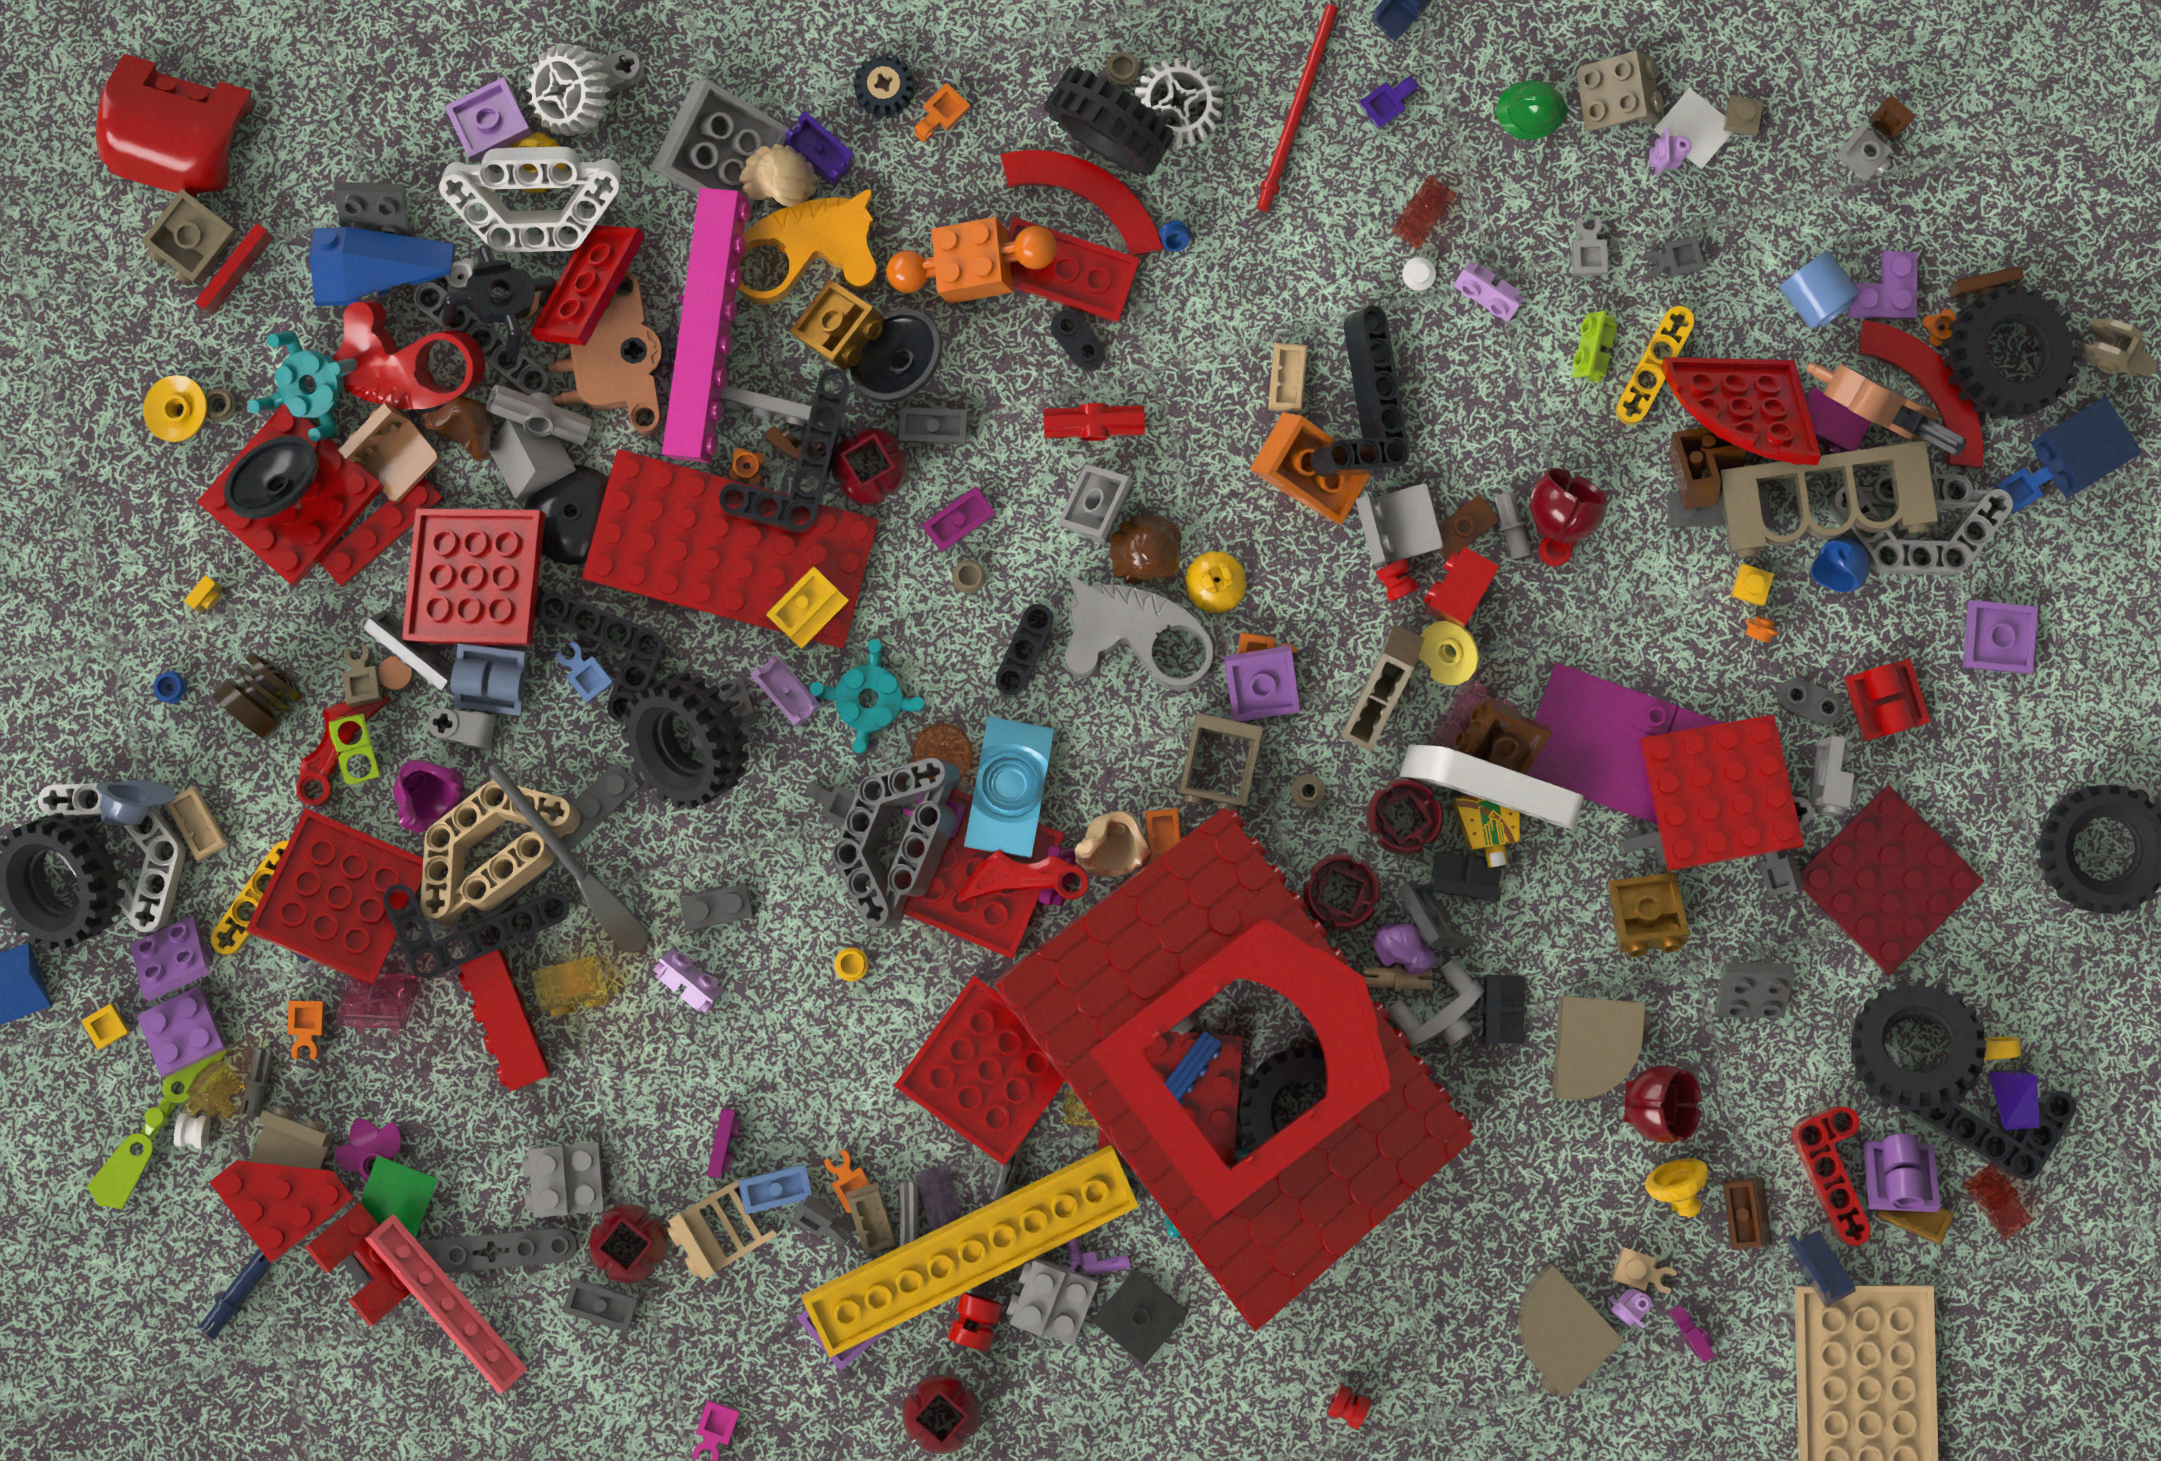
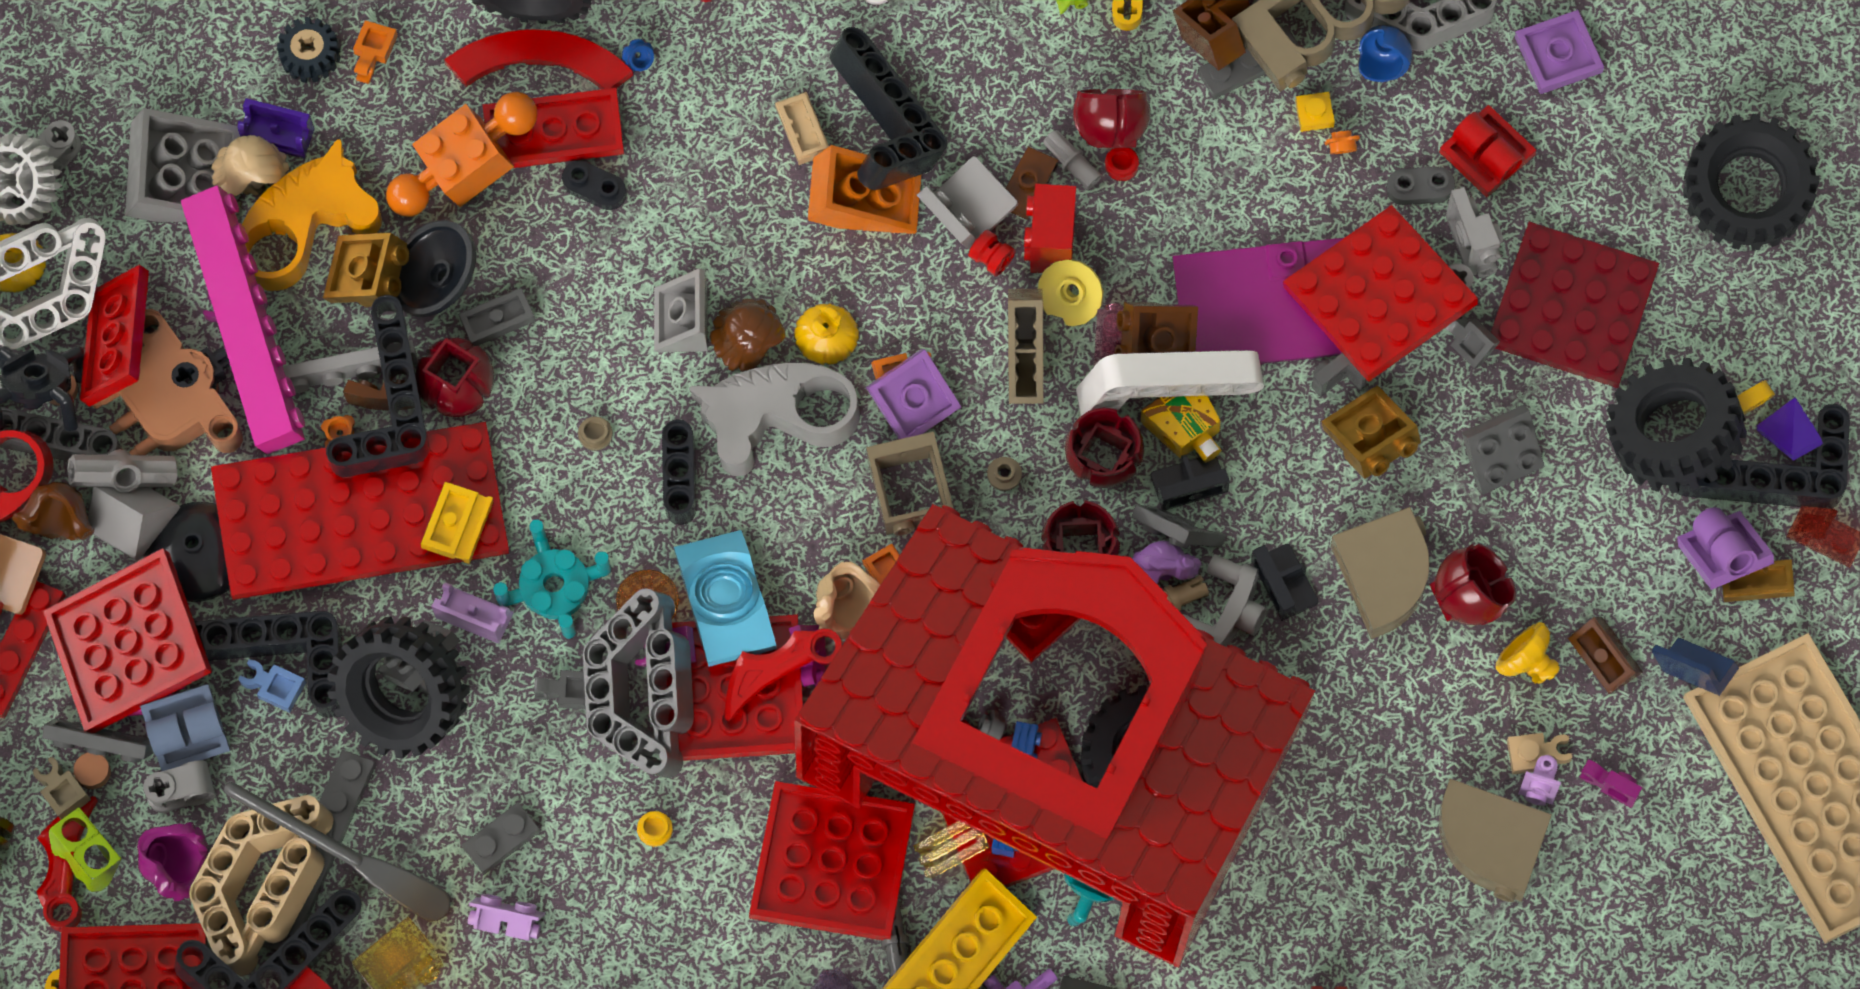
camera: 20 degrees left, 15 degrees down
(958, 519) = (561, 387): magenta plate -> none
(1094, 422) = (644, 245): red piece -> none
(1837, 1176) = (1669, 581): red beam -> none

